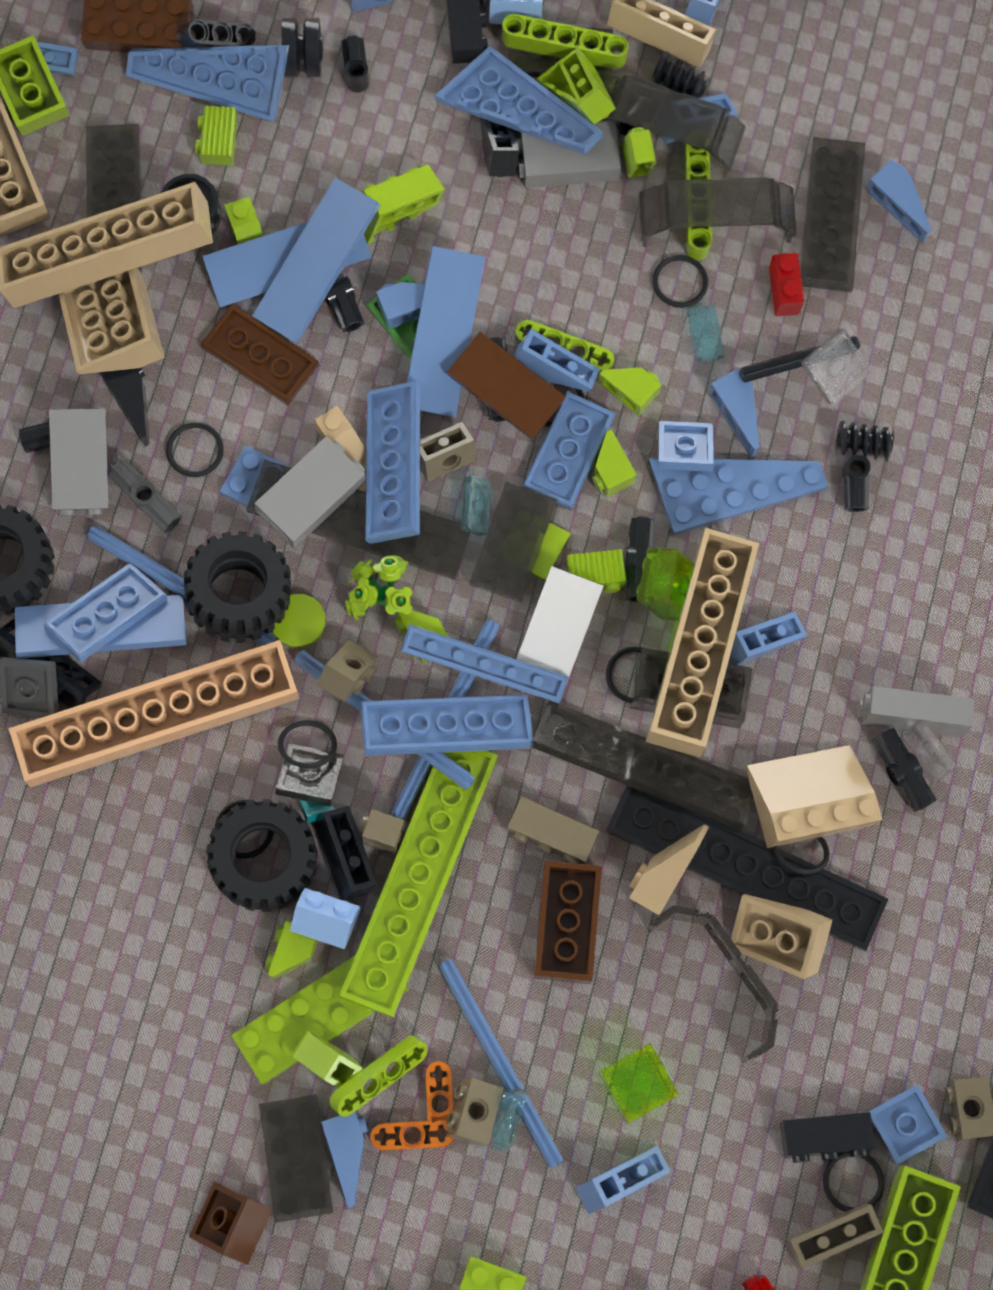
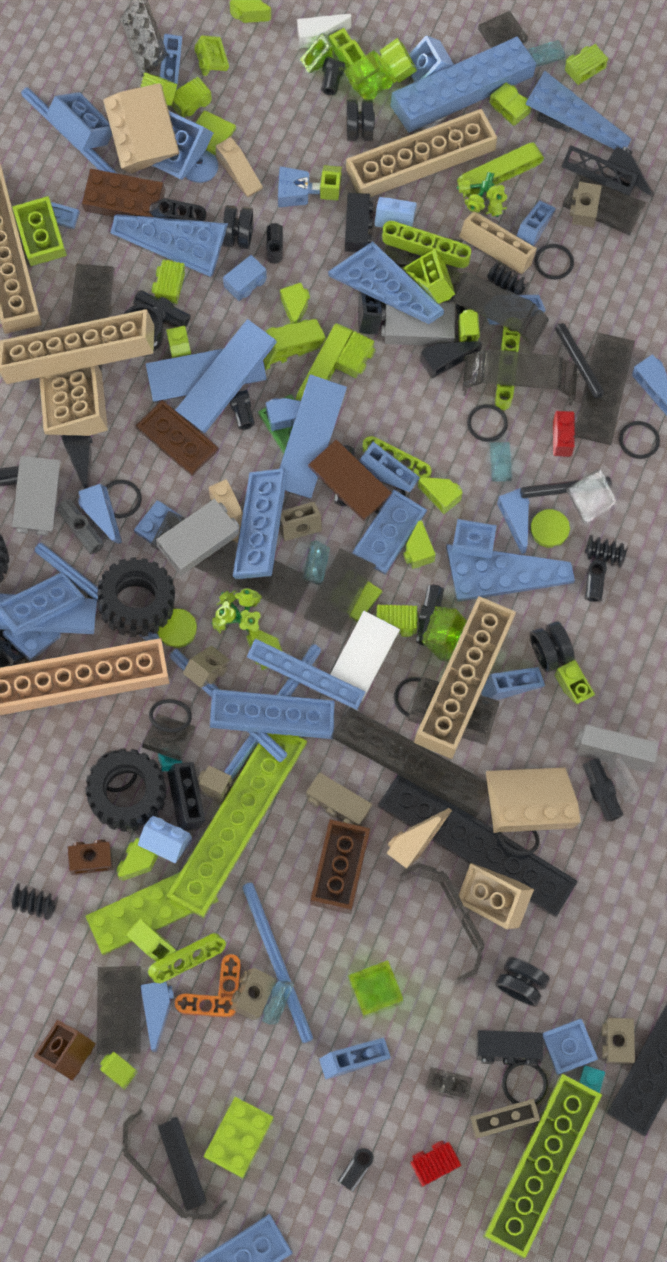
camera: 10 degrees right, 5 degrees down
(102, 668) = (32, 642): none -> medium blue plate
(158, 1026) = (33, 902): none -> black piece
(166, 465) = (97, 505): none -> medium blue slope
(217, 174) = (164, 307): none -> black piece
(243, 959) = (101, 862): none -> reddish brown brick
(307, 1241) = (117, 1070): none -> lime slope
(322, 118) = (245, 278): none -> medium blue brick
(395, 144) = (295, 301): none -> lime slope
(451, 216) = (326, 360): none -> lime beam
(488, 208) = (355, 355): none -> lime brick
(613, 194) = (445, 356): none -> black slope
(740, 22) = (551, 276): none -> black tyre
(753, 1199) = (448, 1084): none -> clear smoke brick
(785, 418) = (550, 528): none -> lime tile
(795, 180) = (578, 358): none -> black axle
(811, 582) = (552, 646): none -> black wheel
(834, 1046) = (522, 981): none -> black wheel
(847, 628) = (574, 682): none -> lime slope
(884, 302) = (635, 455): none -> black tyre
(941, 1163) = (592, 1078): none -> teal plate

